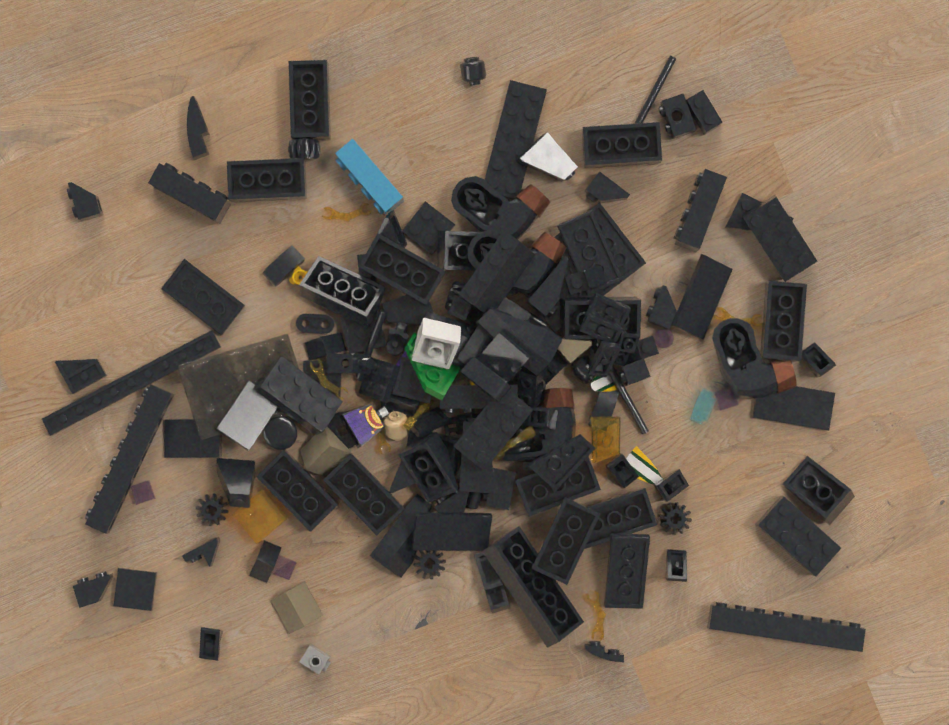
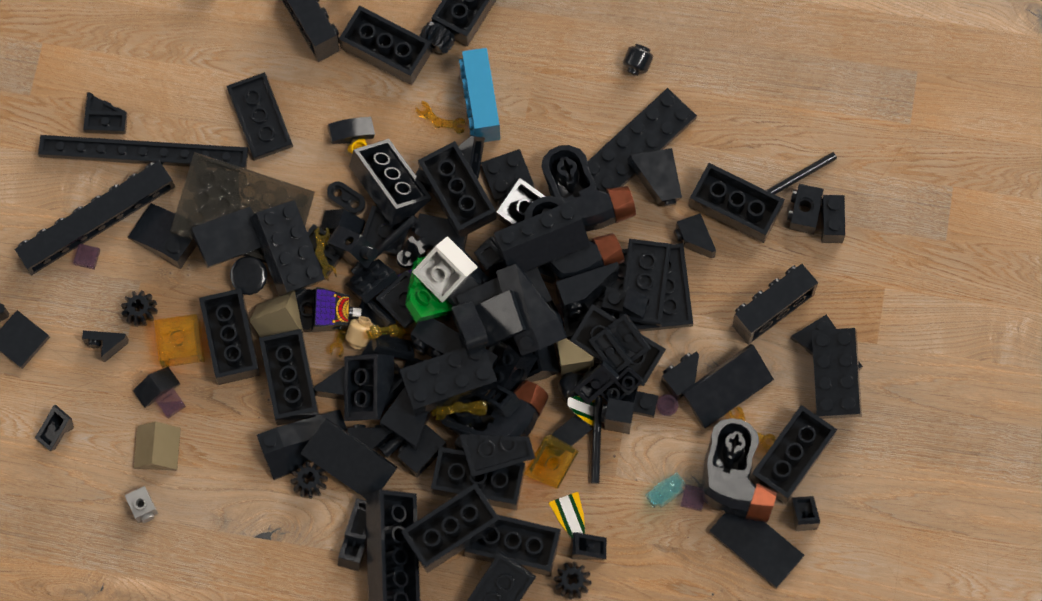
camera: 30 degrees right, 15 degrees down
(237, 480) = (180, 293): black slope -> none
(622, 470) = (549, 503): black slope -> none

